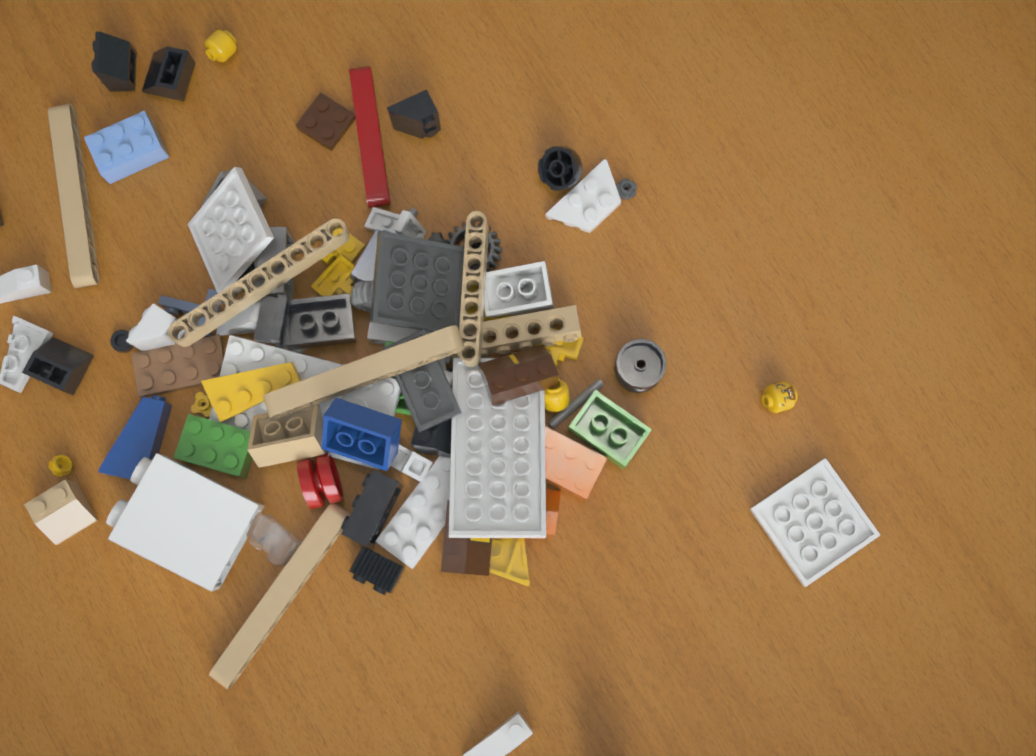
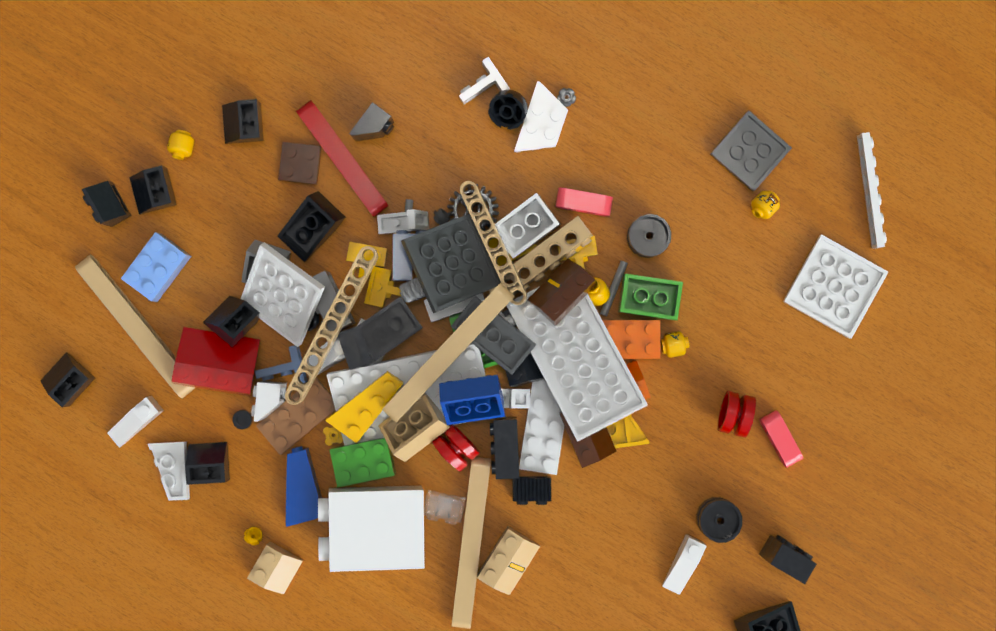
camera: 25 degrees left, 10 degrees up
(127, 266) = (213, 364): none -> red slope
(170, 236) = (232, 319): none -> black slope
(294, 54) = (242, 121): none -> black slope
(302, 184) = (311, 225): none -> black slope
(309, 636) = (507, 561): none -> tan slope
(548, 134) = (484, 82): none -> white bracket
(552, 723) = (718, 531): none -> black wheel
(590, 299) = (584, 202): none -> coral beam
(610, 494) = (674, 344): none -> yellow head
(643, 605) = (736, 414): none -> red wheel
(675, 658) = (781, 438): none -> coral beam
(790, 335) = (750, 151): none -> dark grey plate
(898, 449) = (870, 184): none -> white plate

